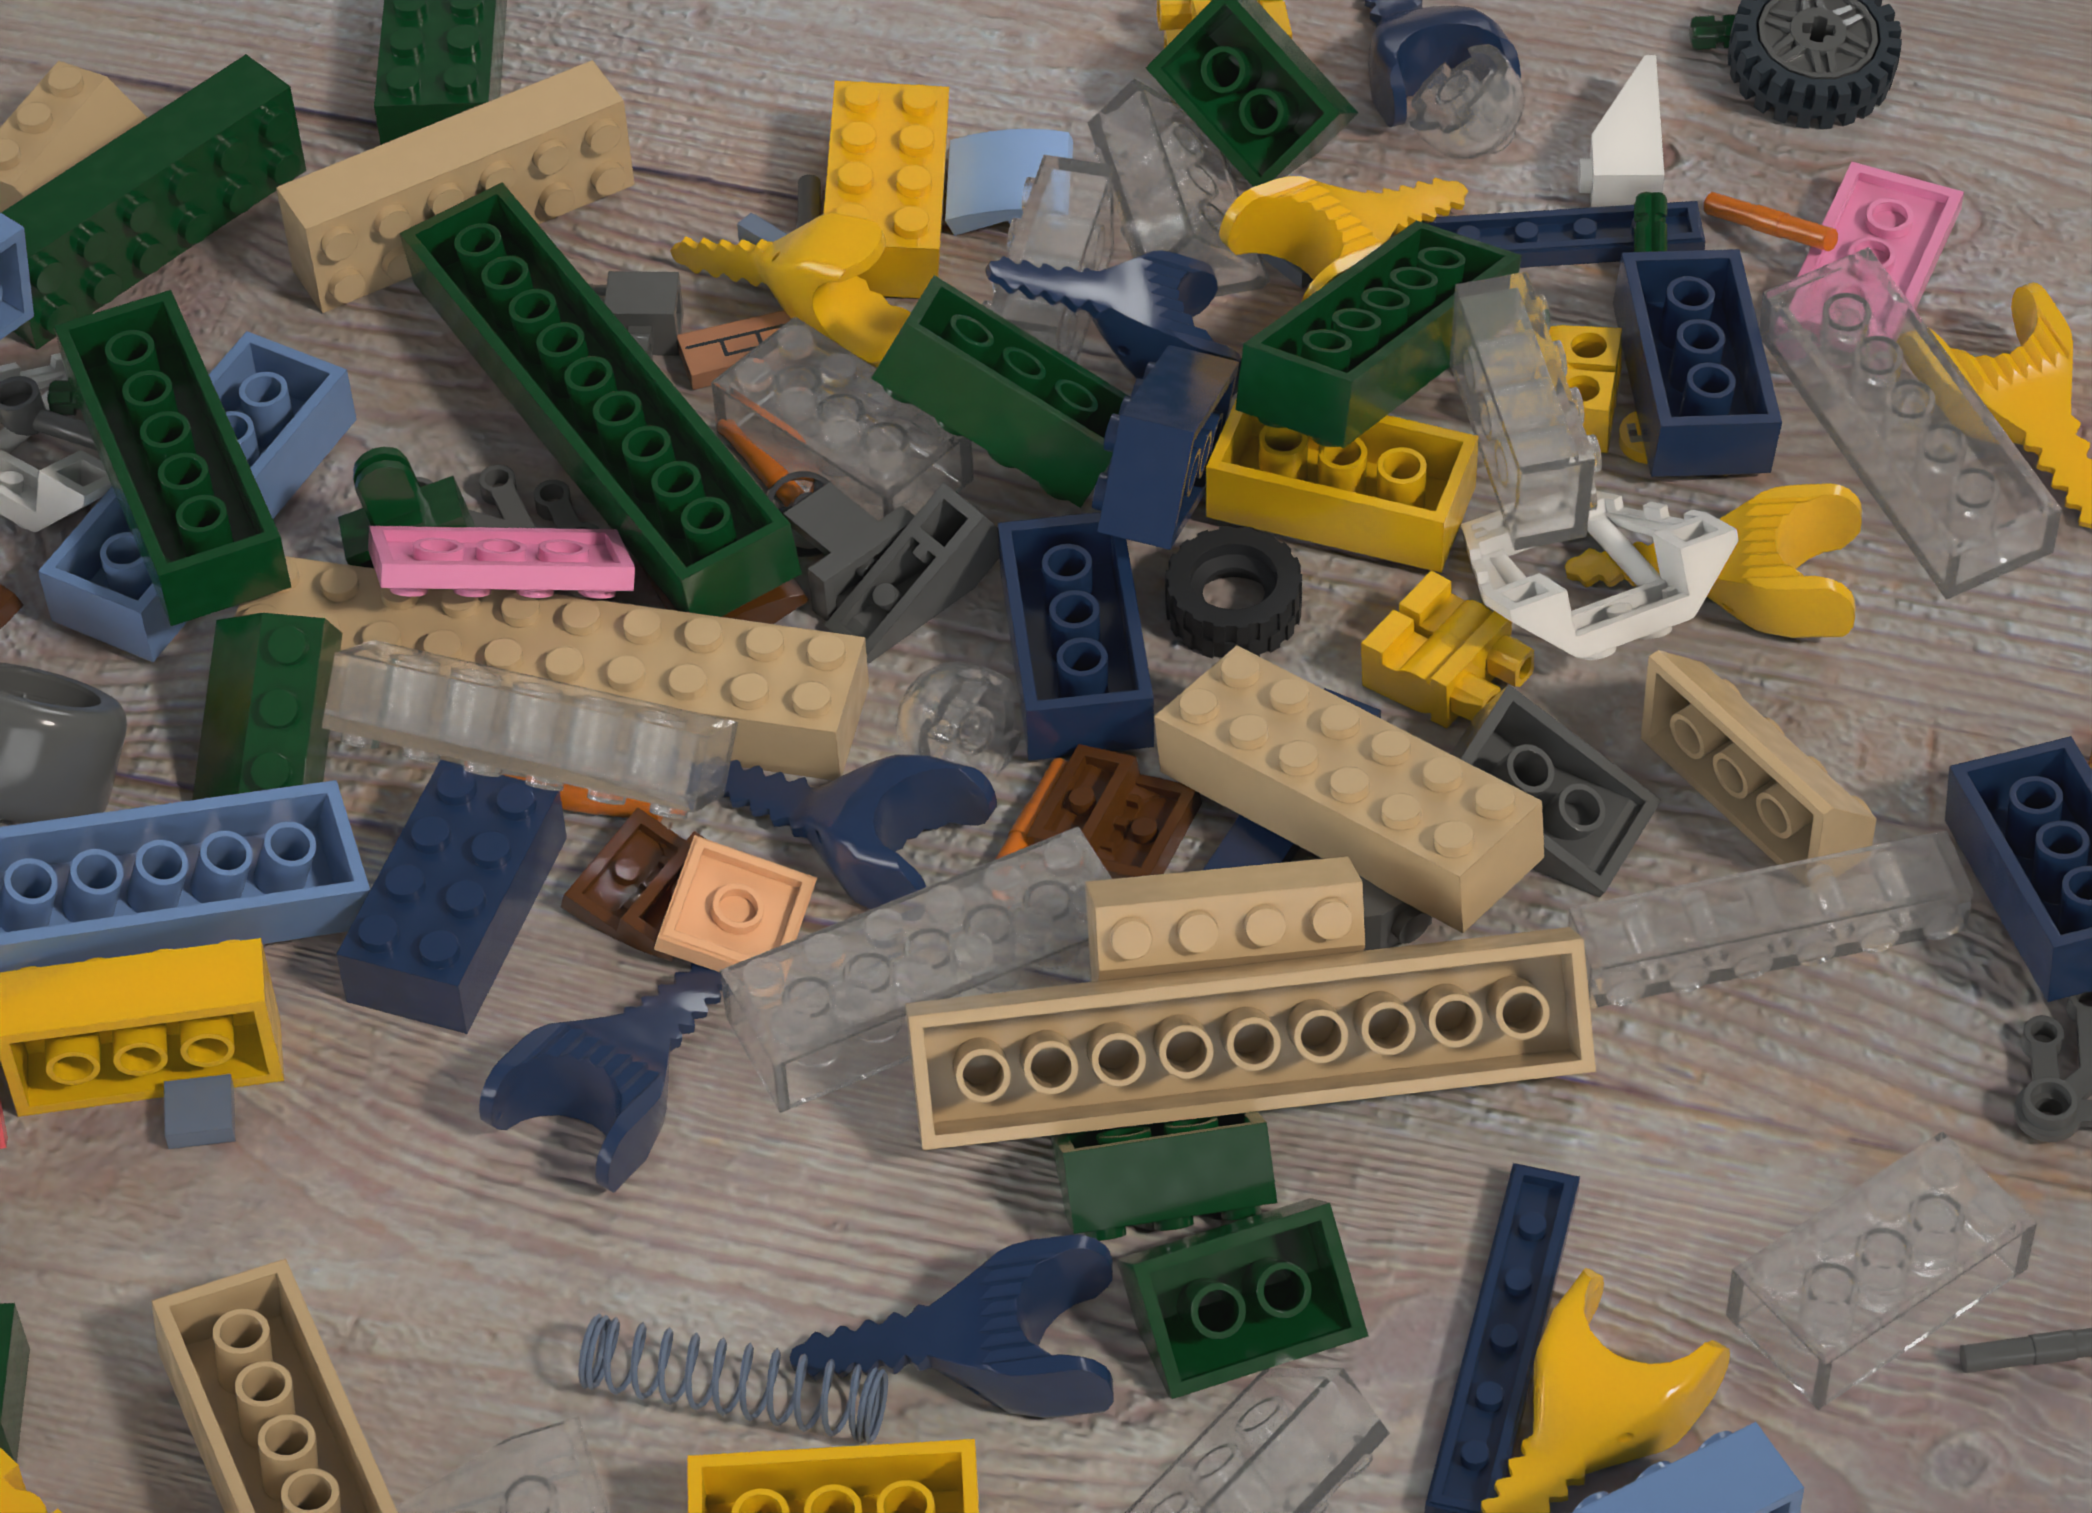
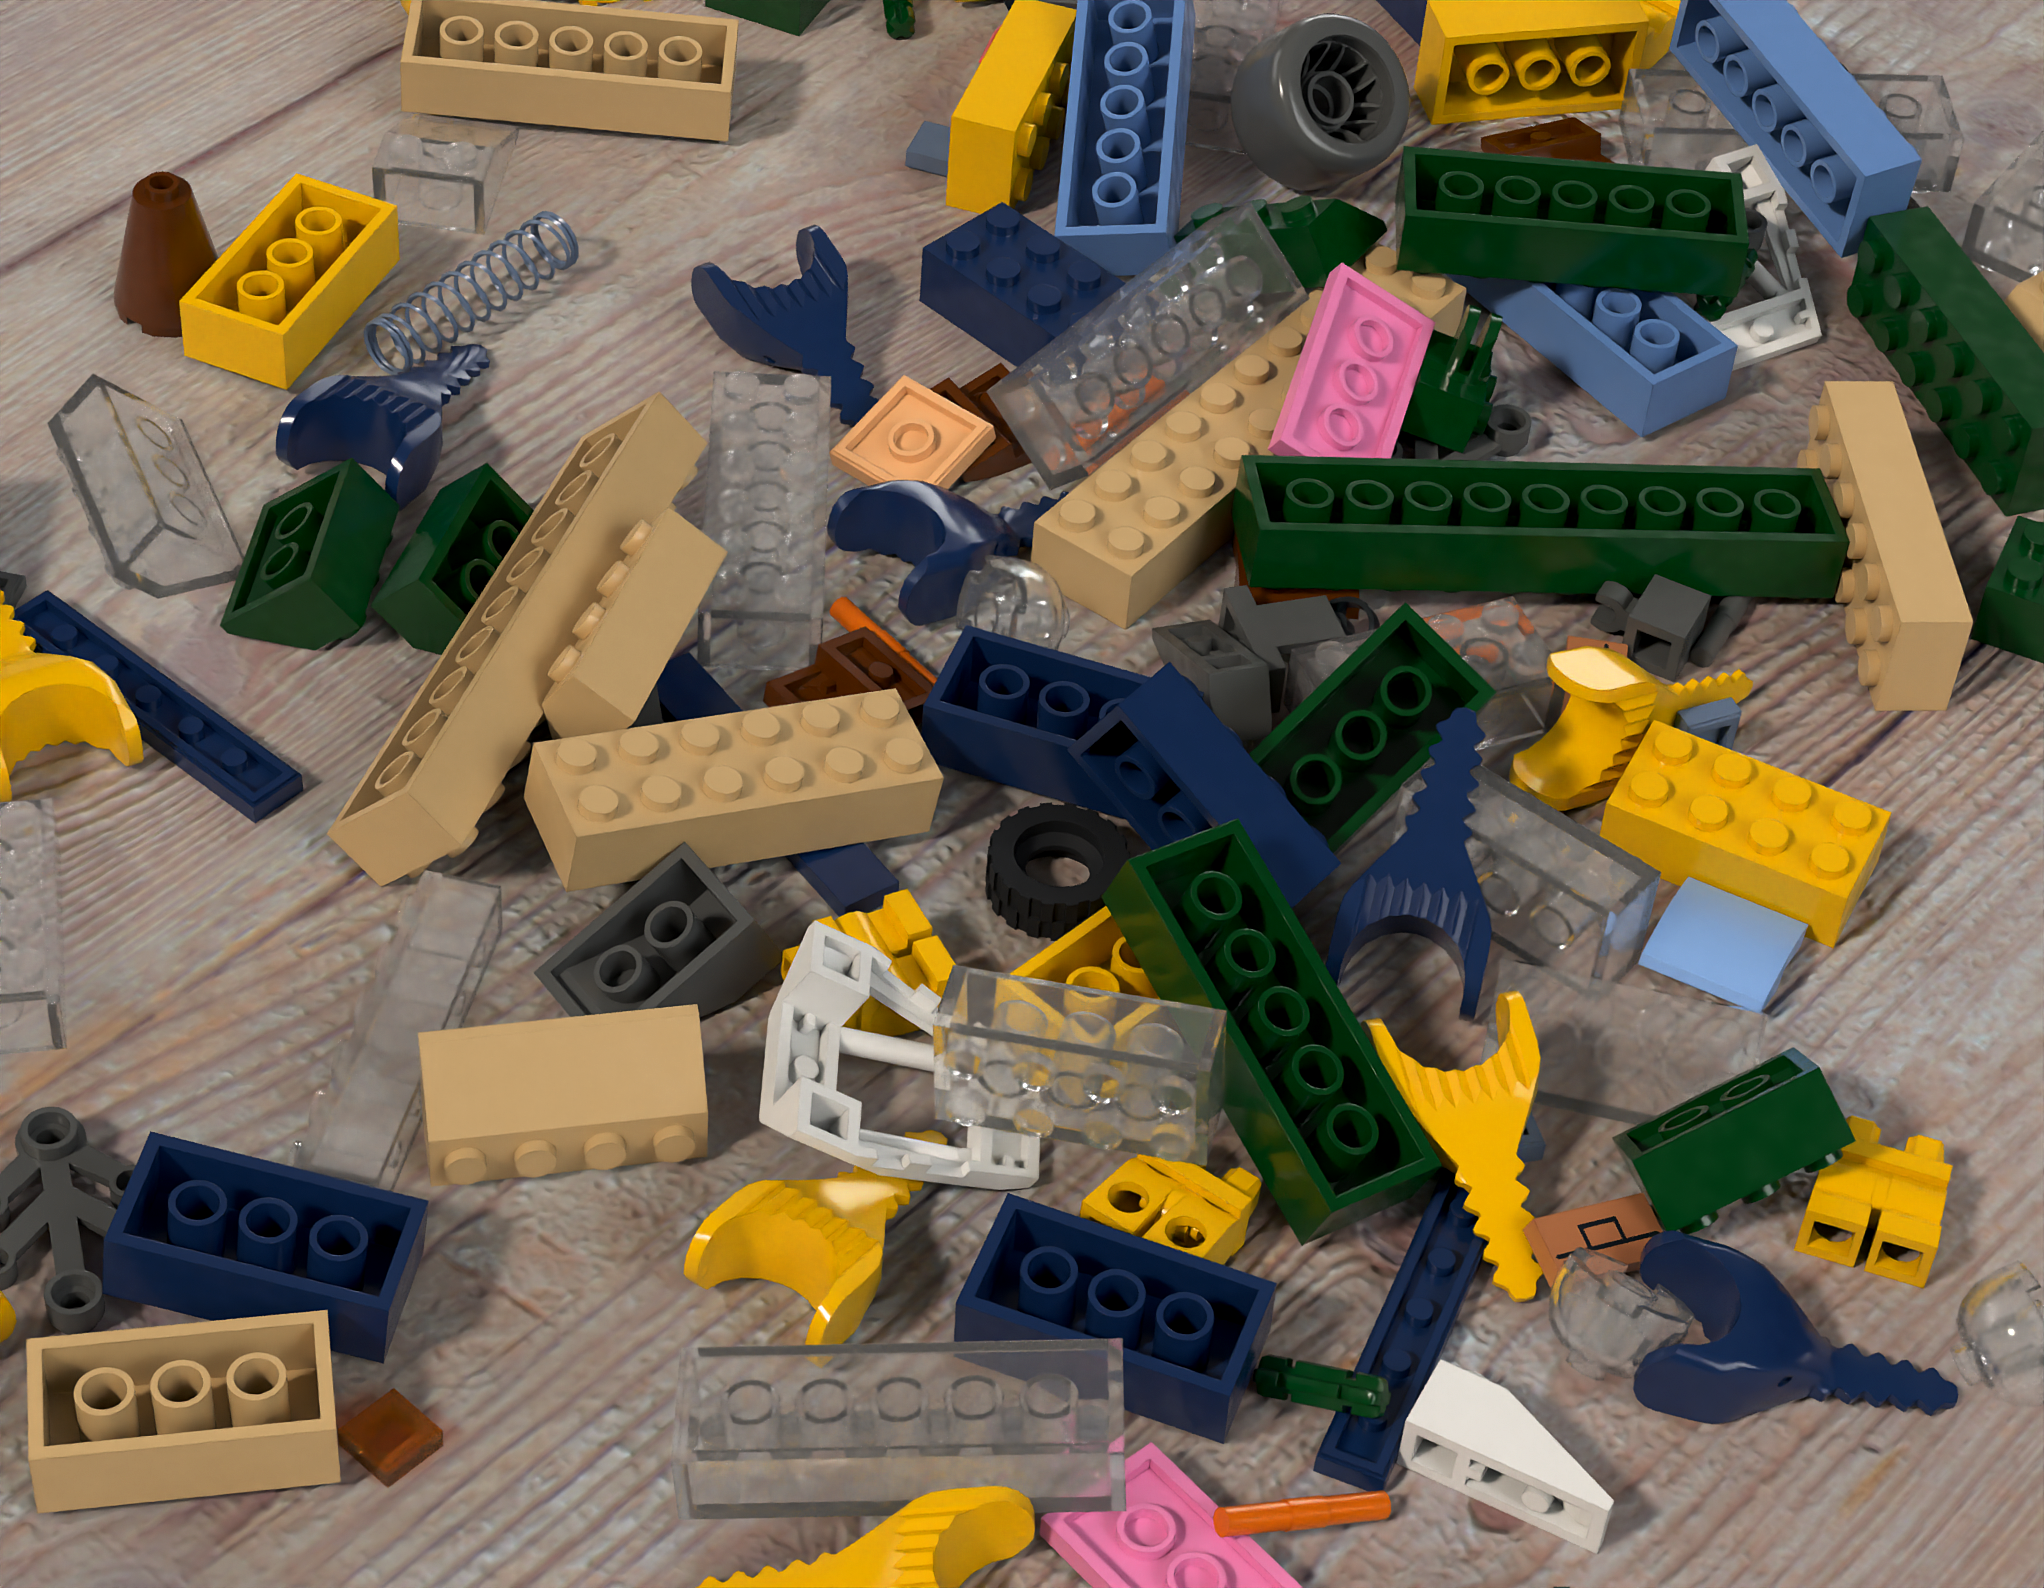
camera: 110 degrees right, 5 degrees down
(1389, 153) = (1610, 1227): none -> nougat tile

